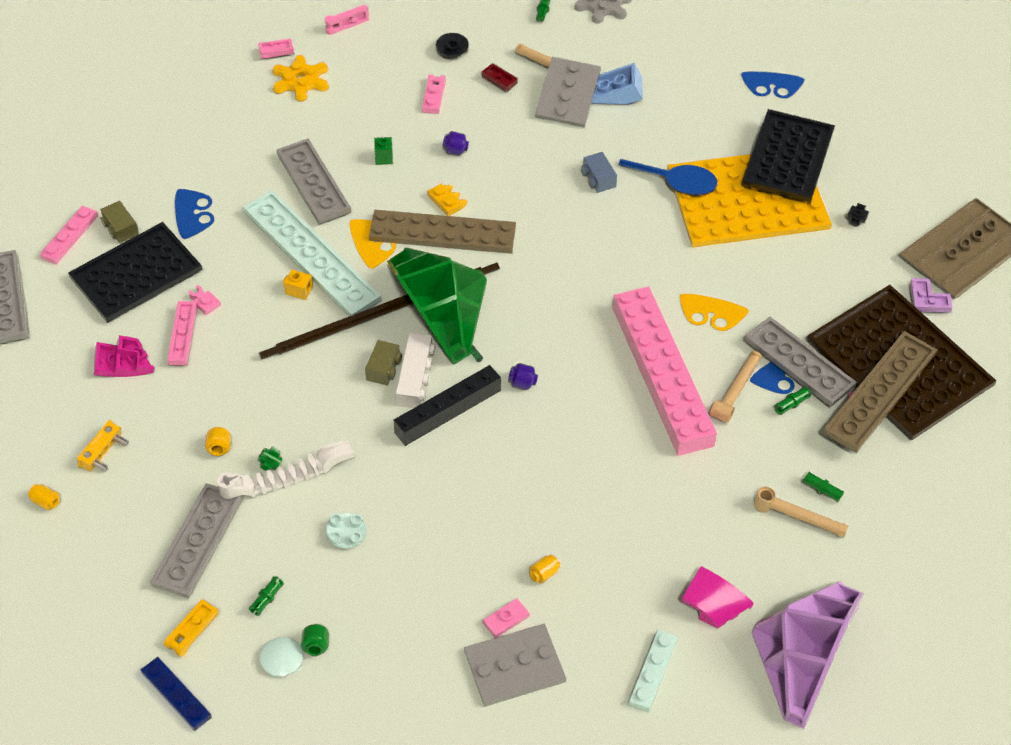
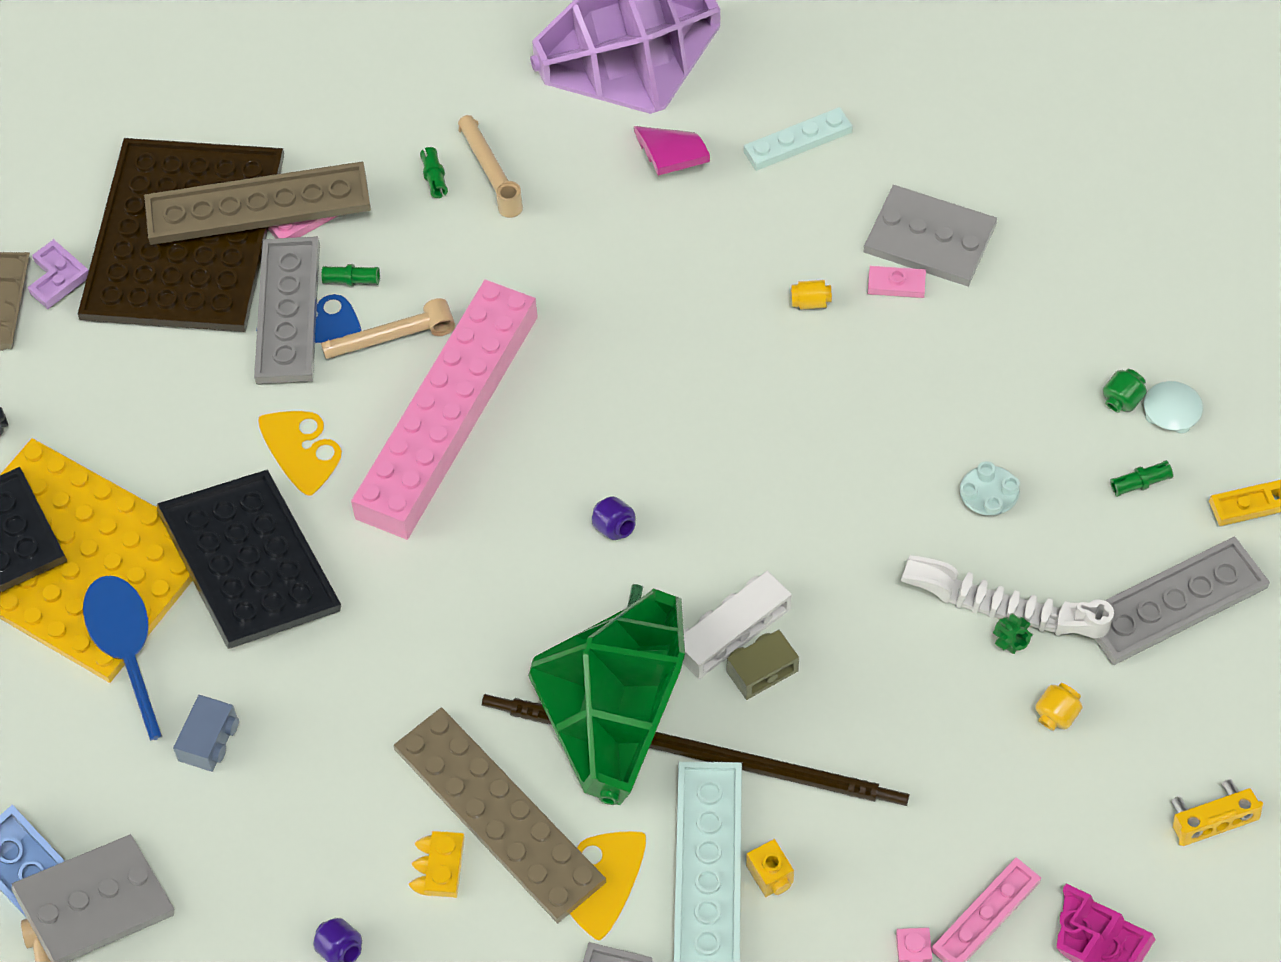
camera: 135 degrees left, 5 degrees up
(447, 405) = (737, 546): black brick -> none
(667, 240) = (248, 558): none -> black plate

